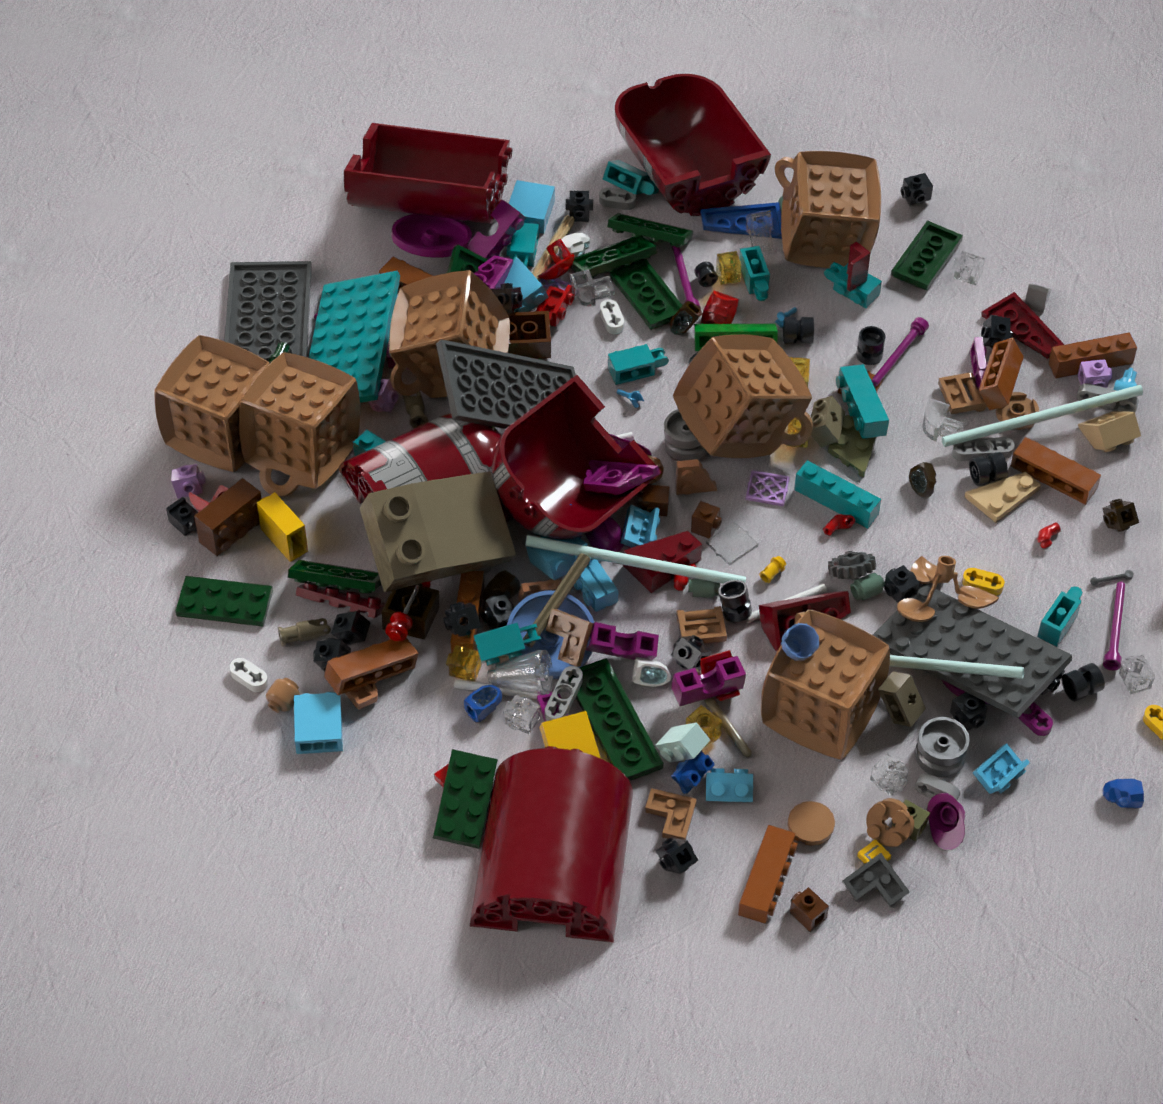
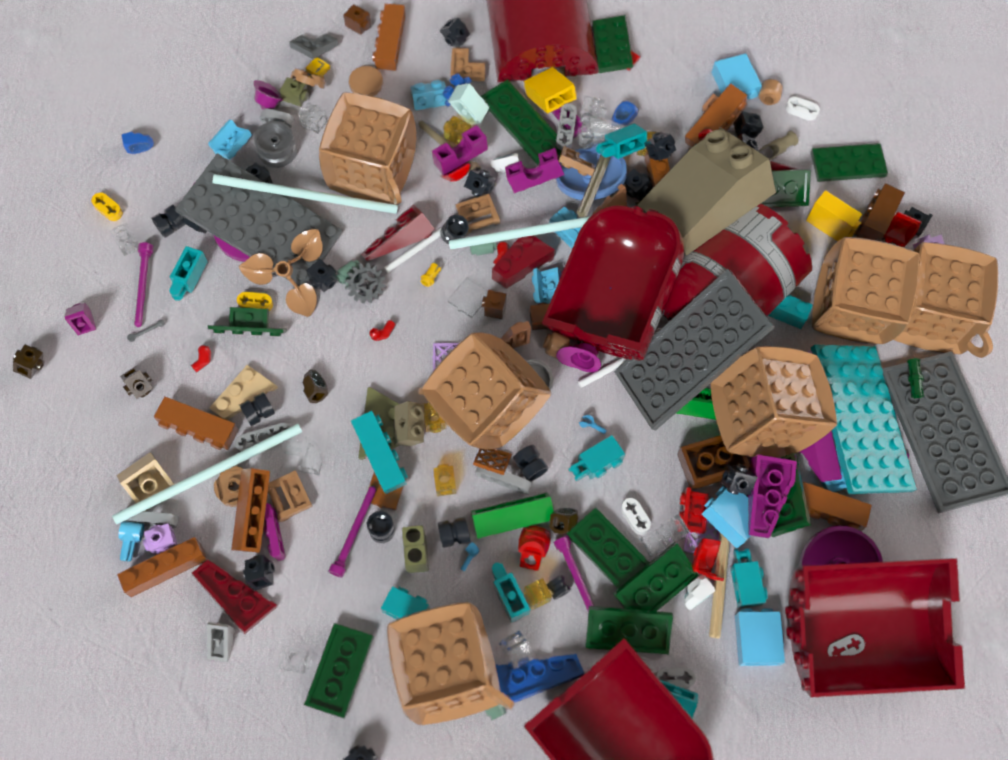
camera: 165 degrees right, 15 degrees up
(508, 221) = (777, 576): magenta arch -> none
(579, 205) = (705, 654): black brick -> none
(617, 476) = (580, 309): magenta wing -> none
(800, 642) = (389, 126): medium blue hair -> none
(837, 494) = (387, 353): teal brick -> none
(839, 336) = (421, 565): none -> olive piece
(857, 266) = (401, 599): dark red panel -> none
(902, 699) = (308, 170): dark tan brick -> none
(993, 554) = (248, 319): none -> dark green bracket

